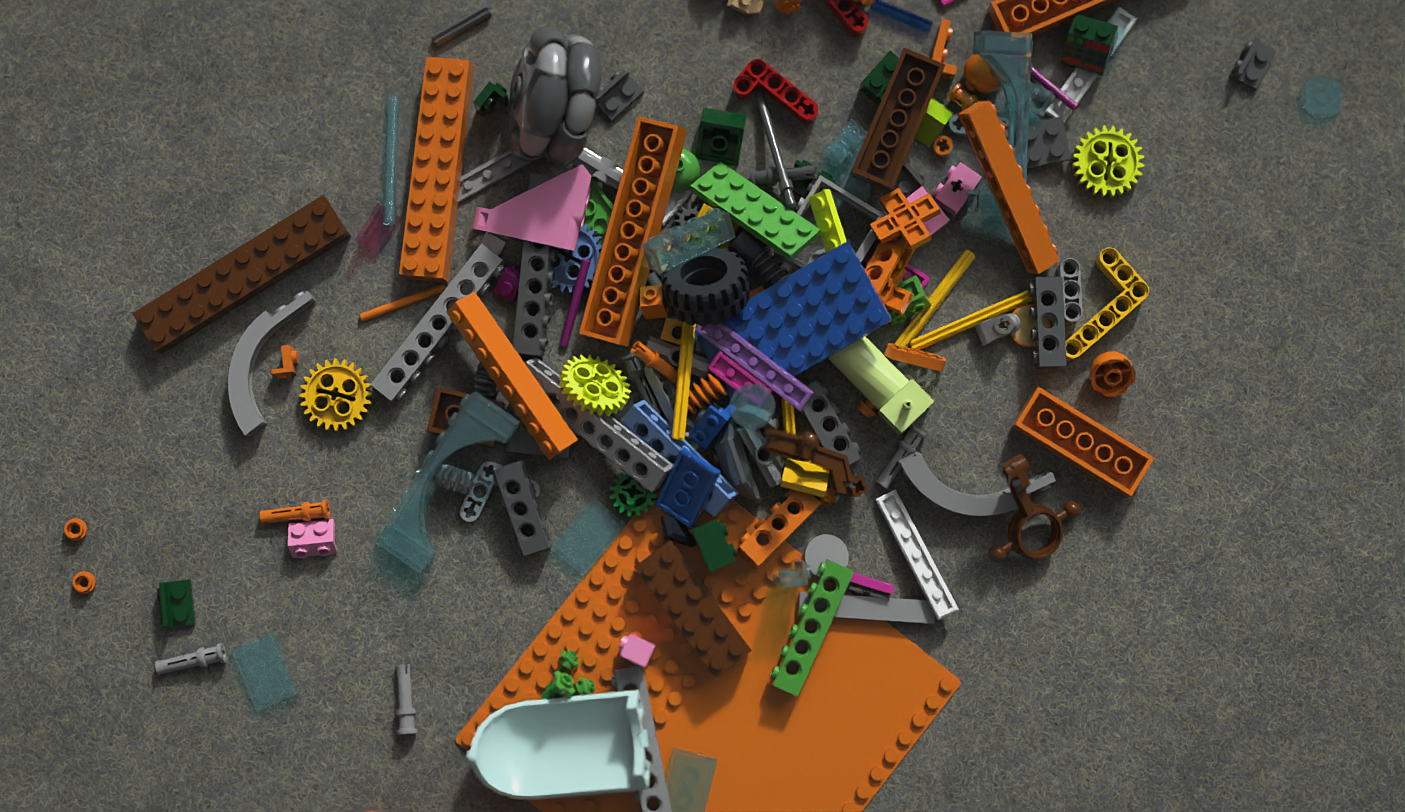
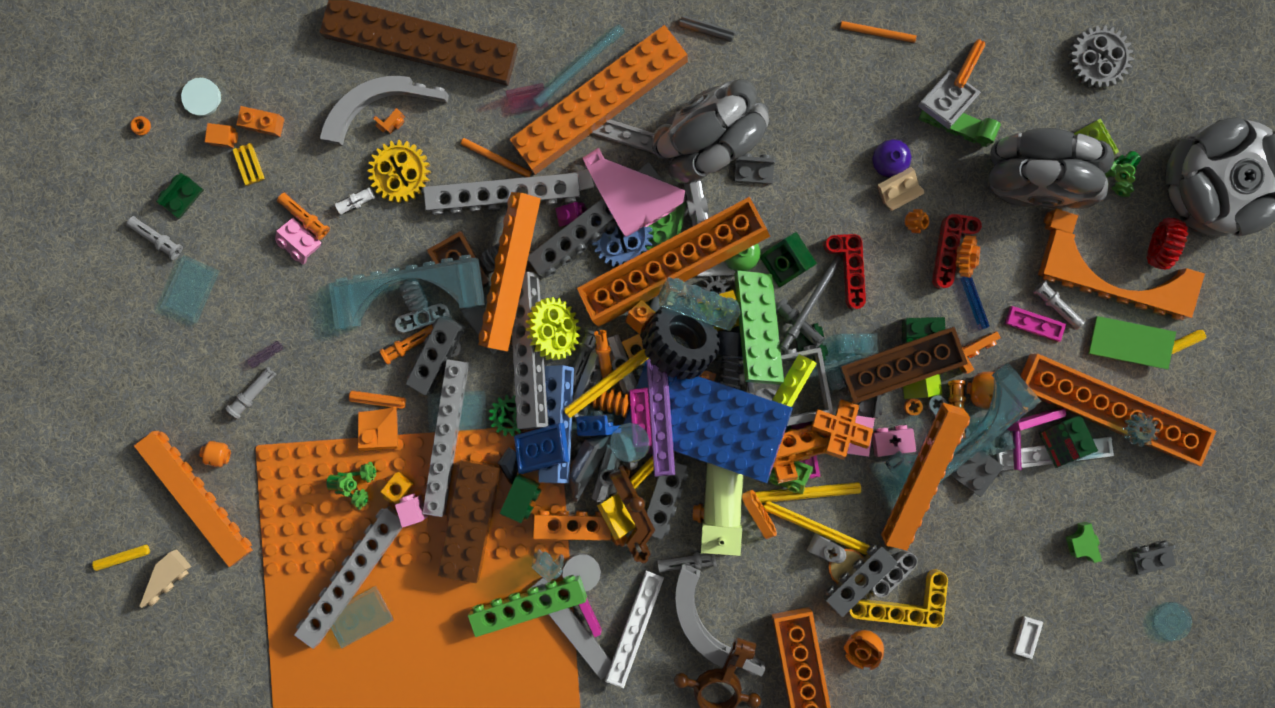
camera: 55 degrees right, 5 degrees up
(69, 526) = (162, 89): orange plate -> none
(109, 507) = (201, 97): none -> light aqua tile
(160, 519) = (221, 135): none -> orange brick
(180, 473) = (260, 121): none -> orange brick
(188, 512) = (241, 166): none -> yellow tile
(325, 456) = (355, 200): none -> white pin
(383, 657) = (265, 354): none -> clear purple axle
(428, 781) = (215, 454): none -> orange head
(486, 99) = (674, 88): dark green bracket -> none
(490, 535) = (398, 346): none -> orange pin
(513, 595) = (377, 399): none -> orange axle
(540, 617) = (378, 429): none -> orange plate
(563, 747) = (308, 521): light aqua panel -> none
(574, 304) = (595, 266): magenta bar -> none
(601, 563) = (445, 438): none -> light grey brick
(609, 637) = (400, 480): none -> light orange brick
(1047, 53) = (1037, 419): none -> dark pink tile
(1126, 165) = (1010, 536): neon yellow gear -> none
(1188, 109) = (1084, 543): none -> bright green brick
(1227, 229) = (1027, 637): none -> white tile

